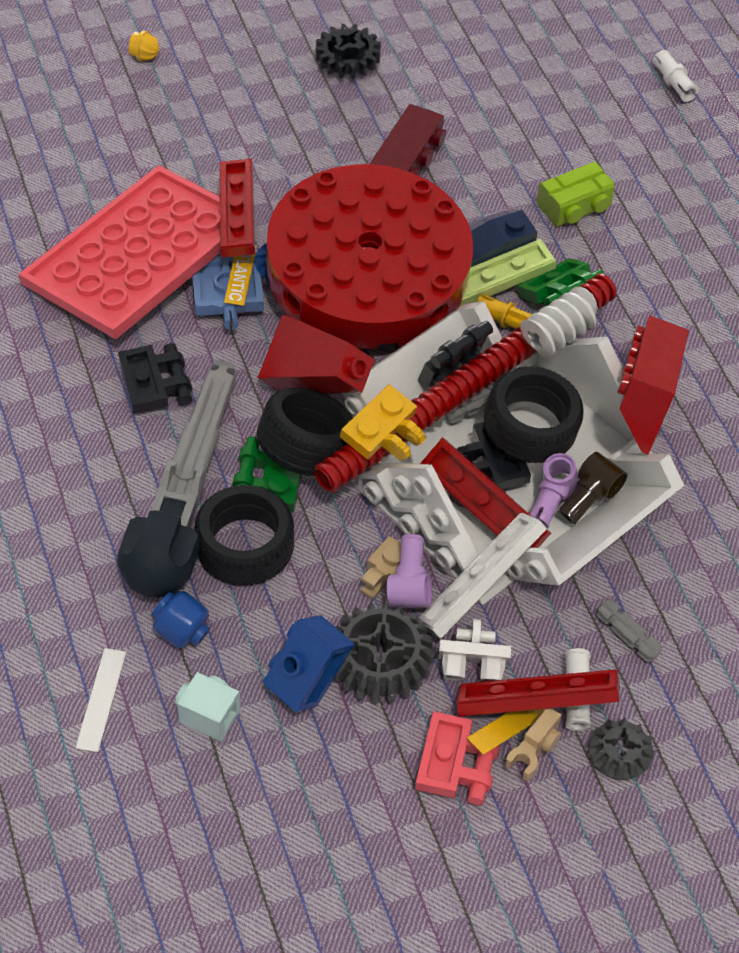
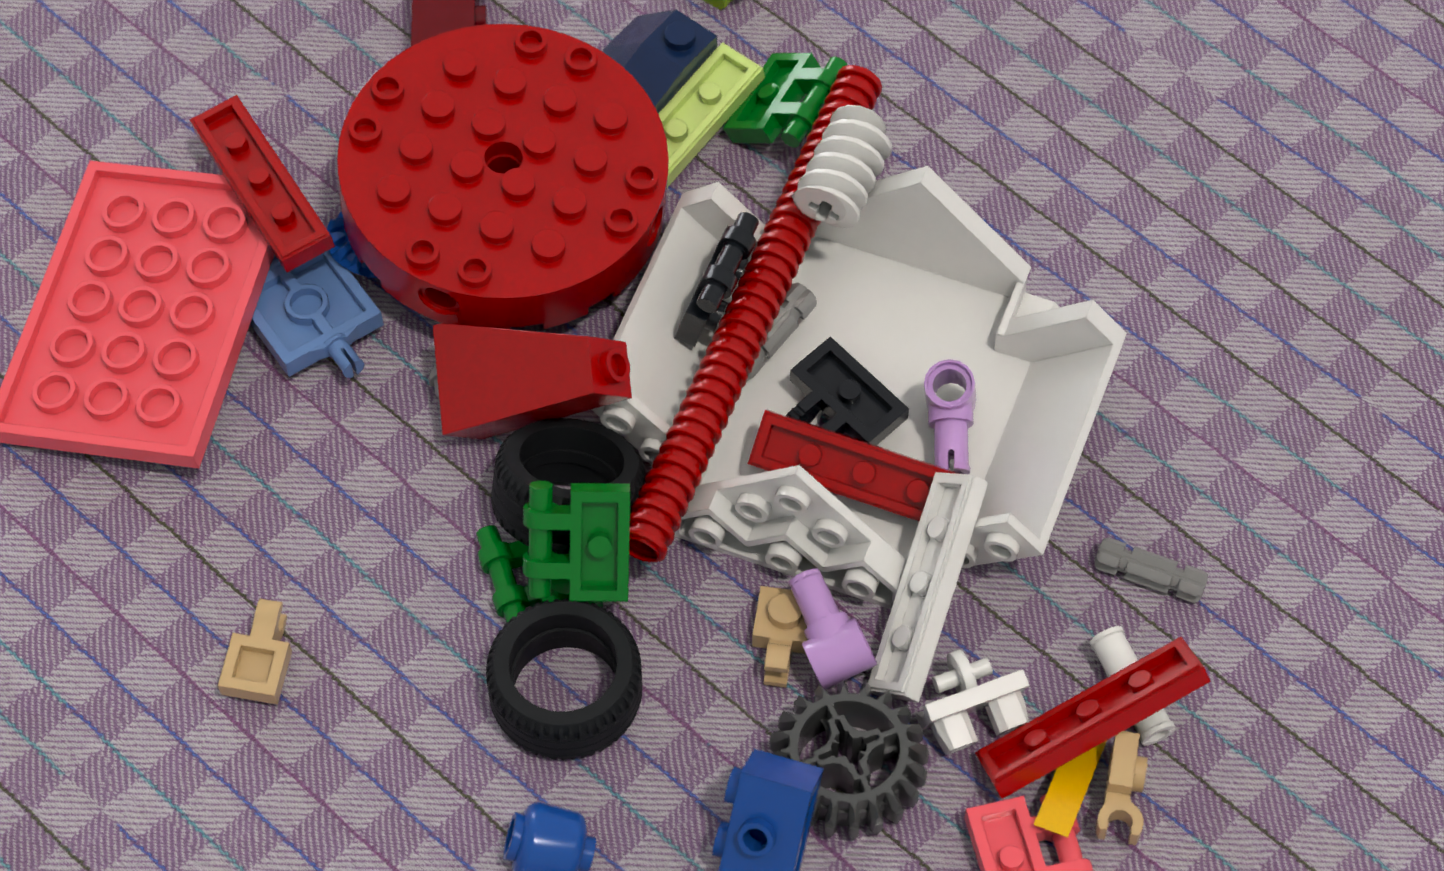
camera: 25 degrees left, 5 degrees up
(86, 453) = (258, 662): none -> tan plate
(143, 377) = (274, 511): black plate -> none
(163, 548) = (461, 758): piece -> none
(239, 279) = (327, 297): yellow sticker -> none
(298, 460) = (598, 541): none -> green plate
(380, 421) = (678, 432): yellow hinge -> none
(503, 312) = (736, 176): yellow axle -> none
(539, 387) = (880, 276): black tyre -> none
(597, 480) = (1004, 376): dark brown pin -> none
(607, 758) = (1218, 760): dark grey gear -> none
(651, 378) = (1011, 194): red slope -> none

